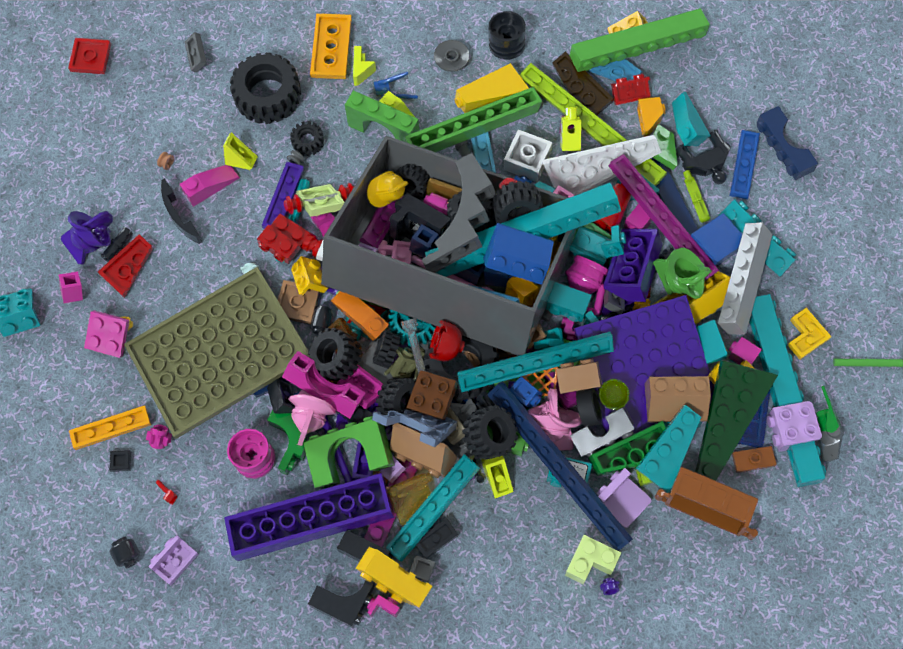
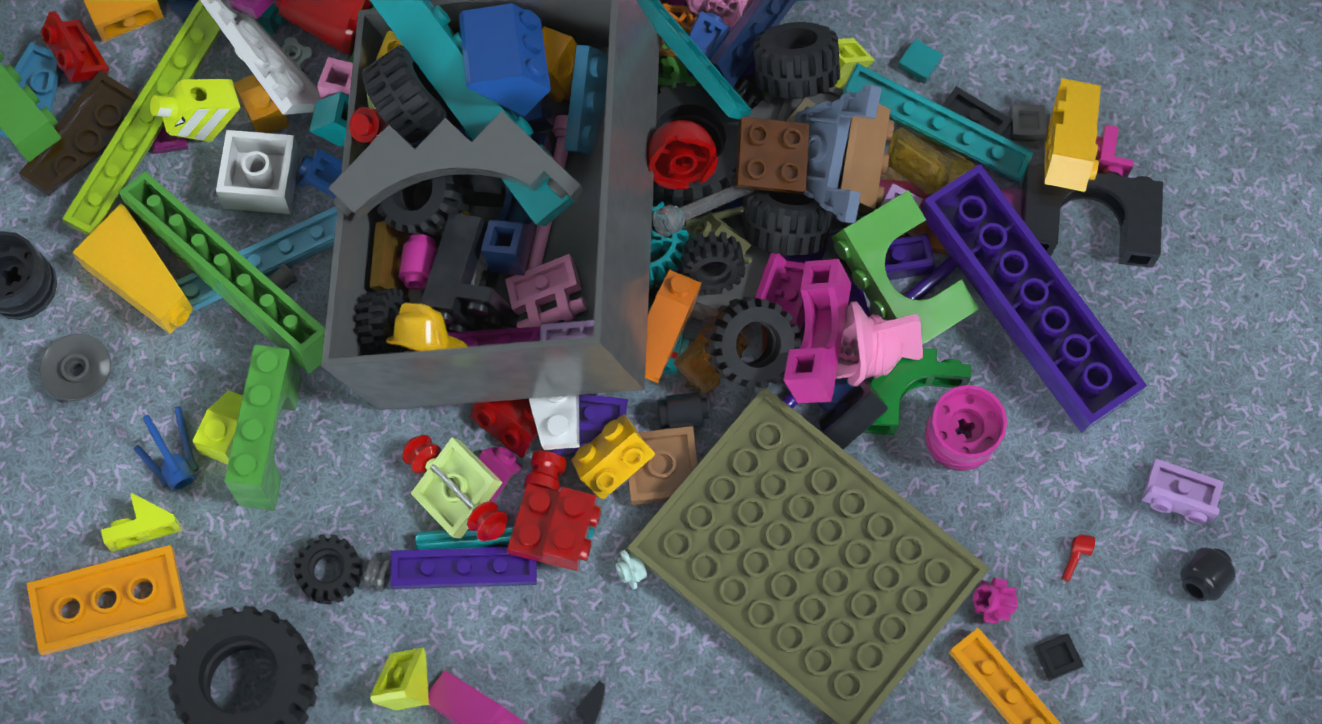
camera: 115 degrees left, 0 degrees up
(484, 523) = (920, 61): none -> teal tile

